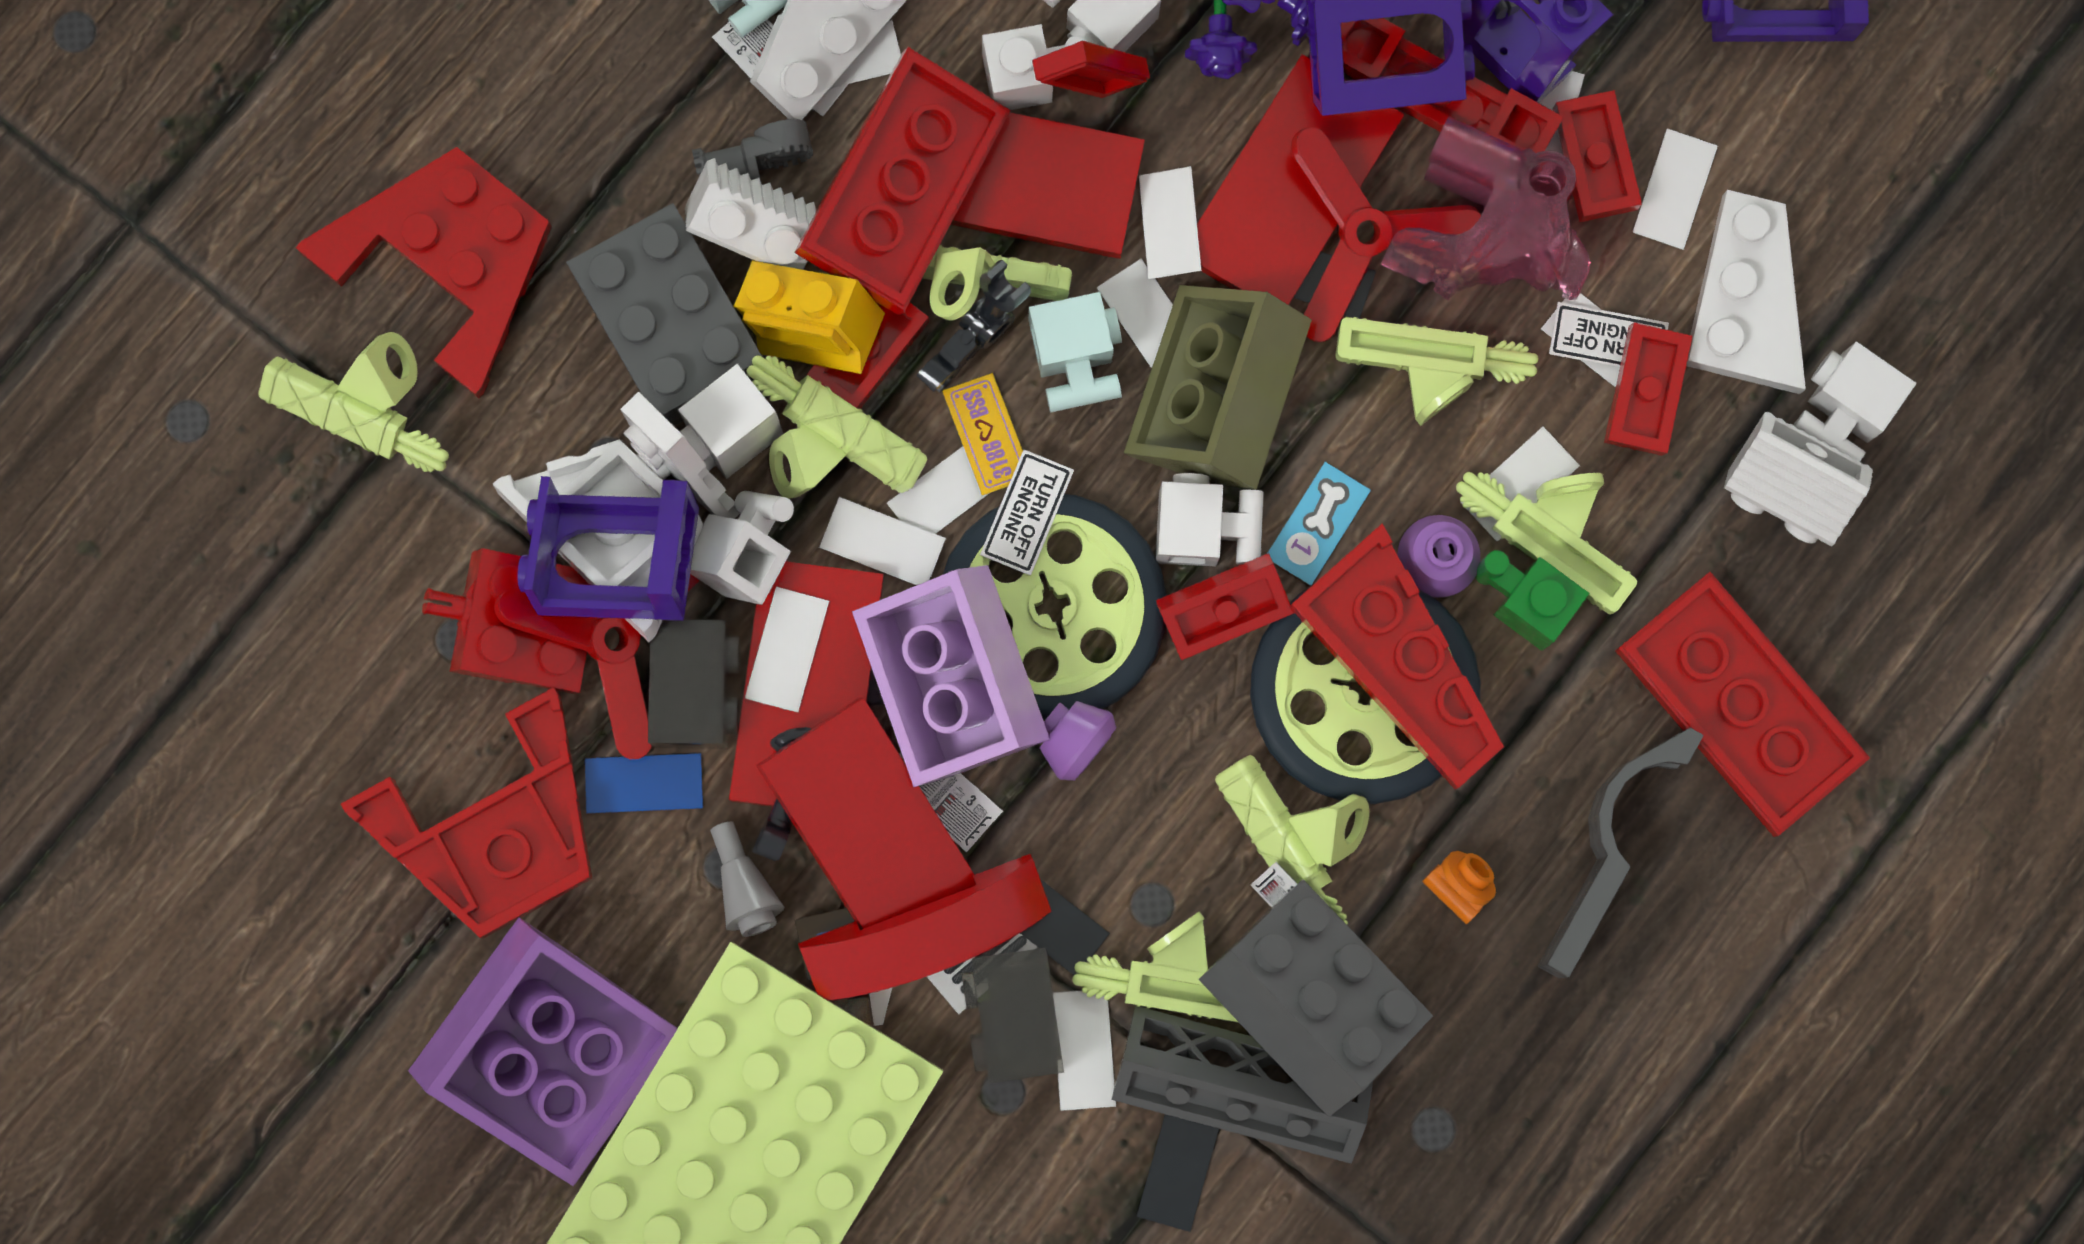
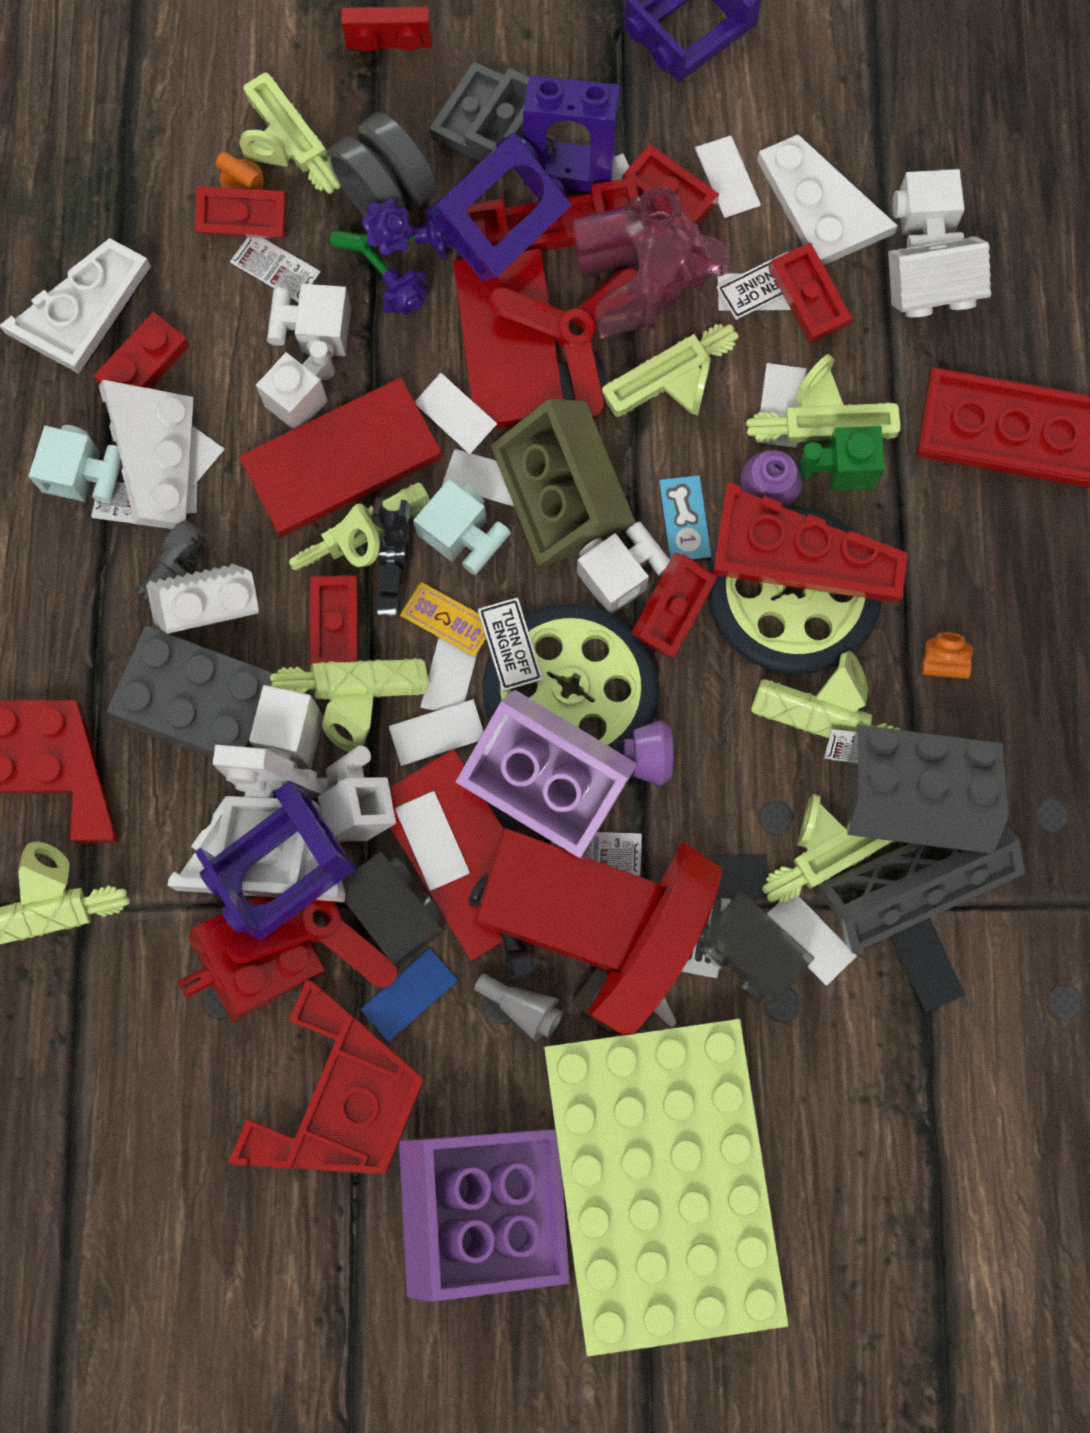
camera: 30 degrees left, 5 degrees down
(809, 316) = (284, 627): yellow window -> none
(903, 180) = (277, 506): red tile -> none
(1091, 69) = (337, 355): red tile -> none
(1610, 865) = (1023, 576): dark grey piece -> none

